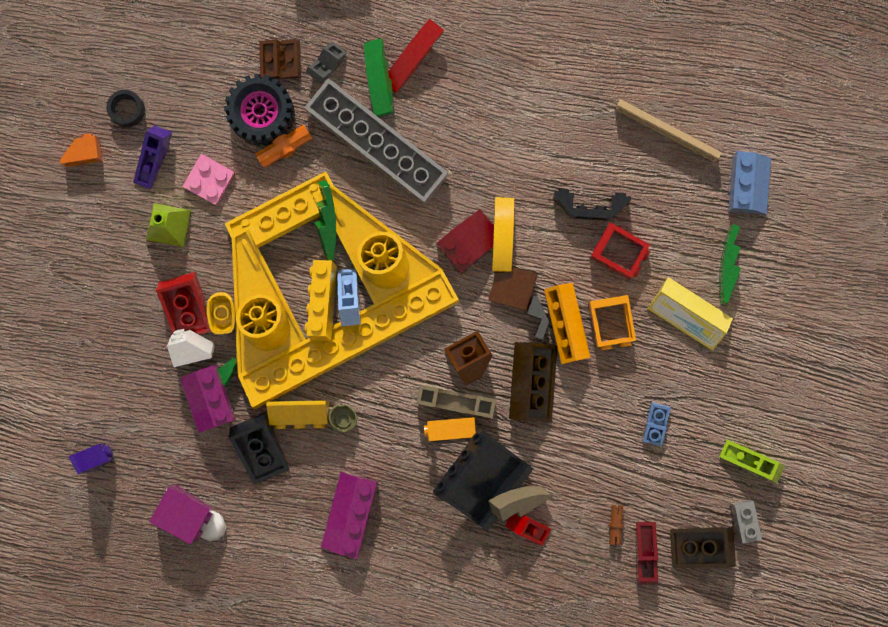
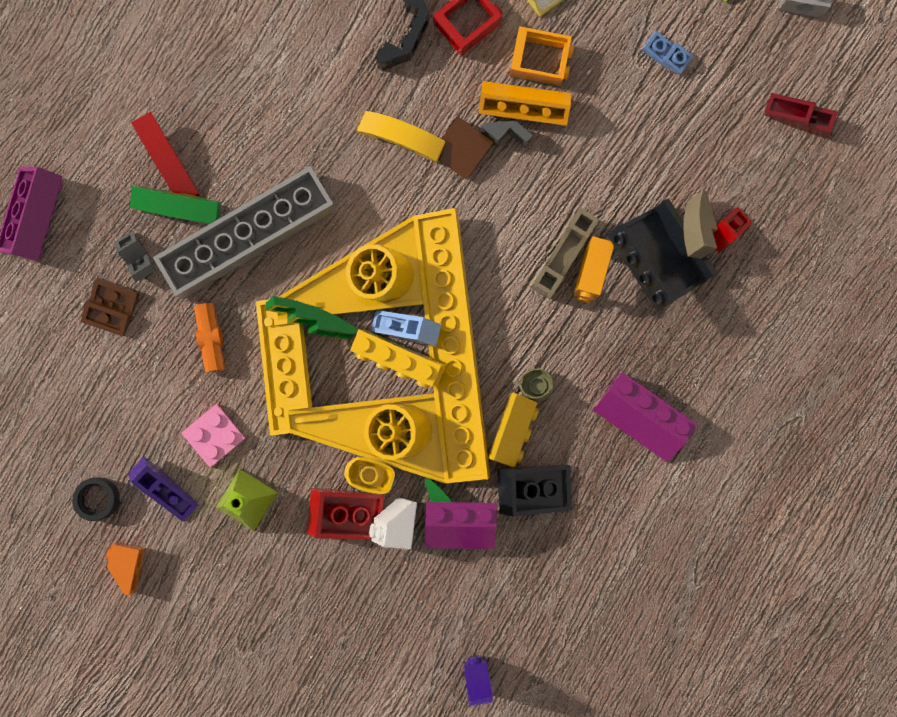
camera: 70 degrees left, 0 degrees up
(181, 514) = (578, 601): magenta slope -> none
(215, 528) = (599, 575): white hair -> none
(253, 90) = (133, 348): black wheel -> none
(468, 241) = (395, 176): dark red slope -> none
(469, 357) = (521, 221): reddish brown slope -> none
(533, 382) = (573, 165): dark brown slope -> none
(616, 524) = (759, 135): dark orange pin -> none
(703, 547) = (817, 54): dark brown slope -> none

